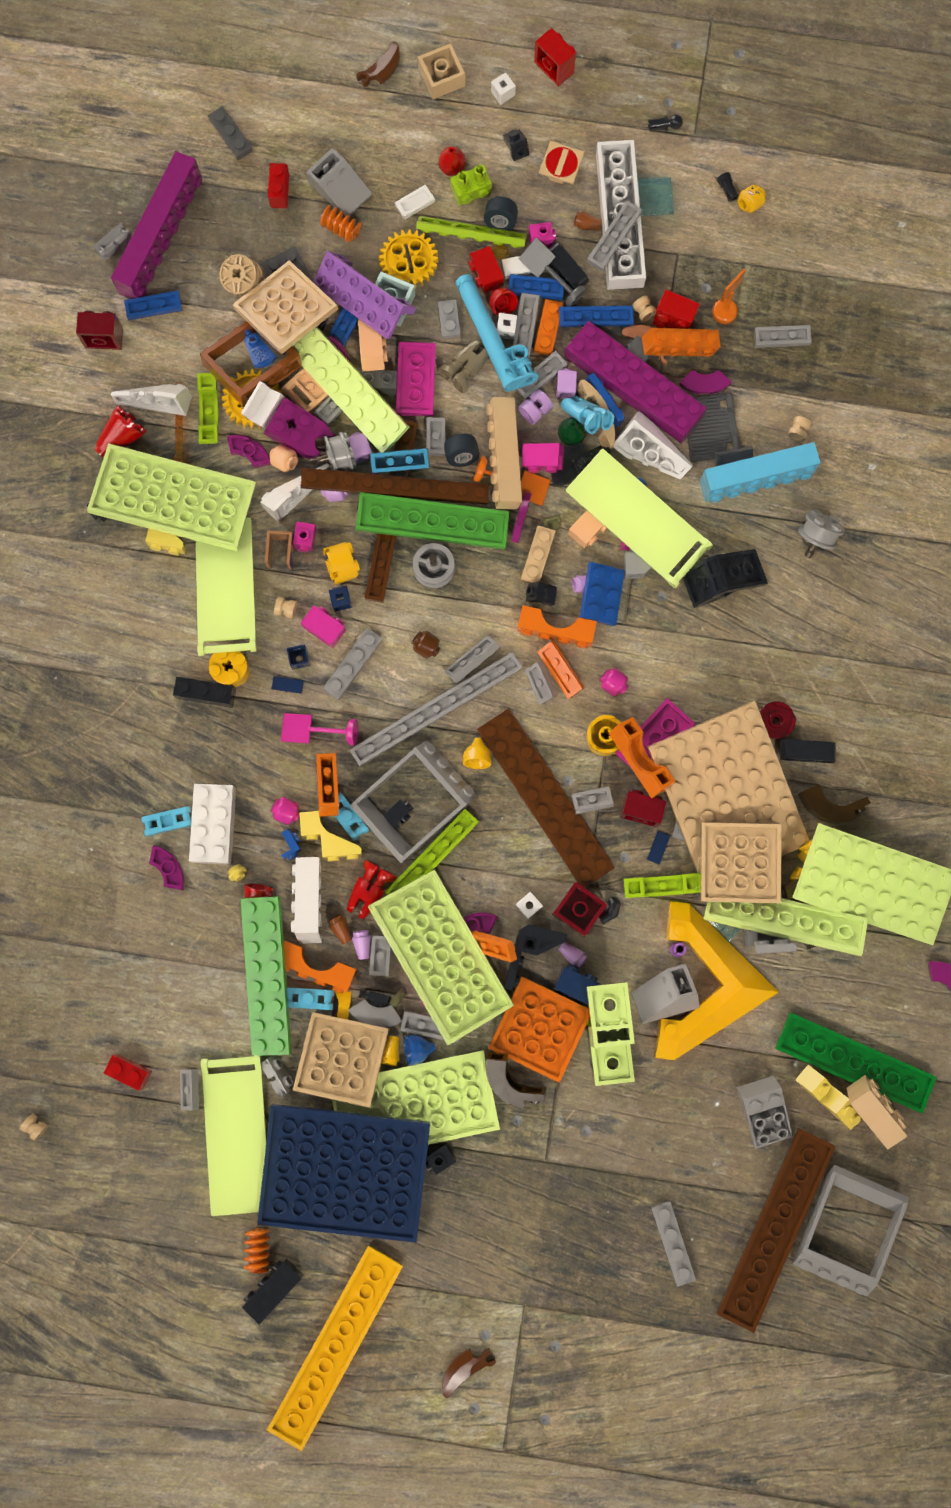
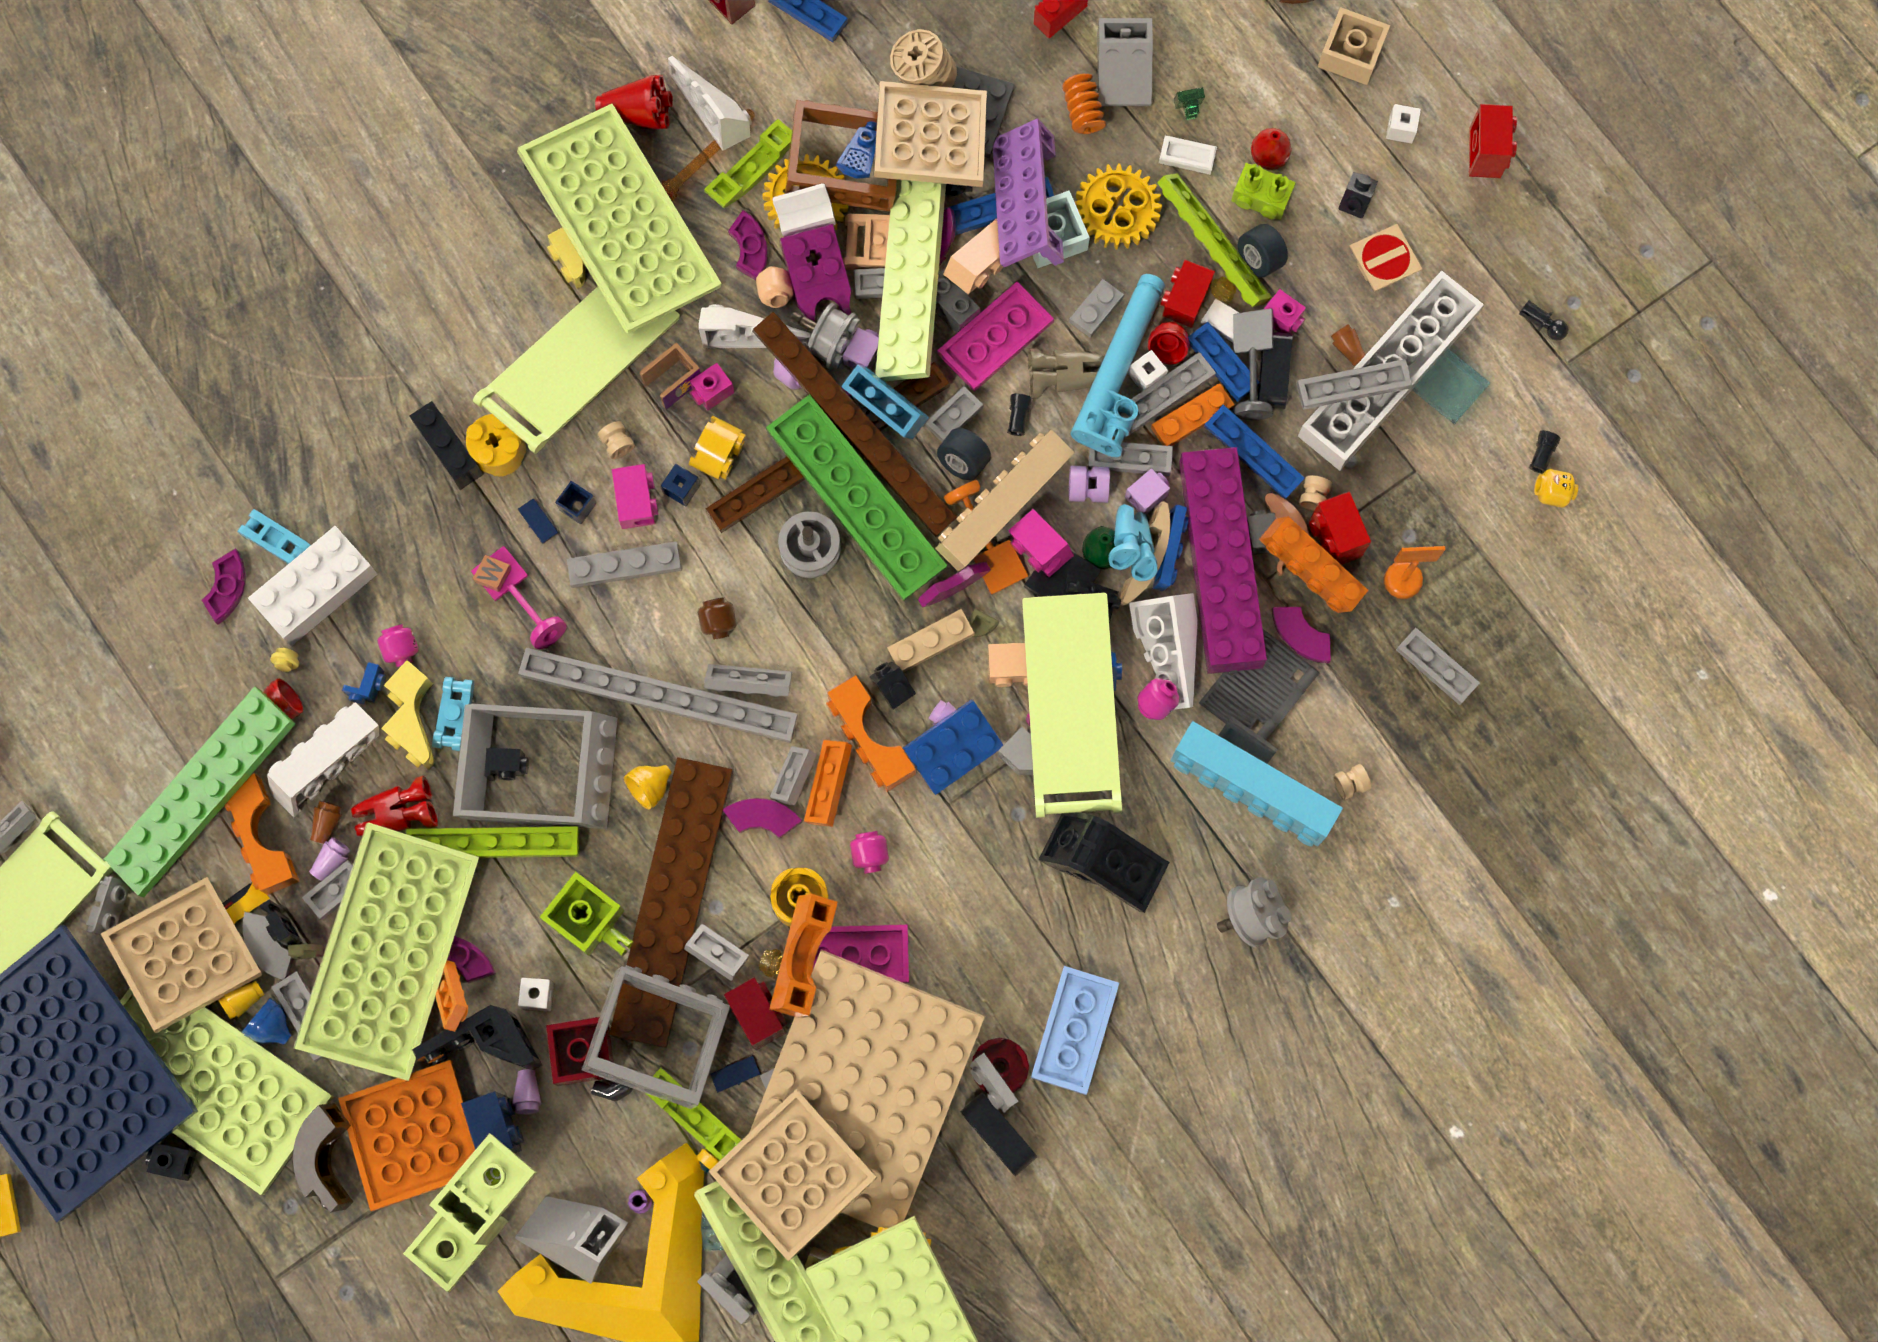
camera: 45 degrees right, 5 degrees down
(294, 731) = (492, 573): none -> nougat tile
(309, 998) = (220, 860): medium azure plate -> none
(327, 784) = (463, 659): orange brick -> none
(390, 174) = (1189, 101): none -> clear green tile
(463, 403) = (1019, 408): none -> black pin
(519, 836) = (596, 927): none -> lime brick
(544, 716) = (762, 814): none -> magenta tile
(622, 779) = (770, 962): none -> clear yellow plate
(637, 847) = (683, 995): none -> light grey window
(673, 477) = (1158, 699): none -> dark pink head
(691, 899) = (706, 1160): none -> yellow tile
(790, 730) = (999, 1092): none -> light grey plate
(792, 669) = (1075, 1030): none -> light blue plate
(824, 810) = (948, 1211): dark brown arch -> none

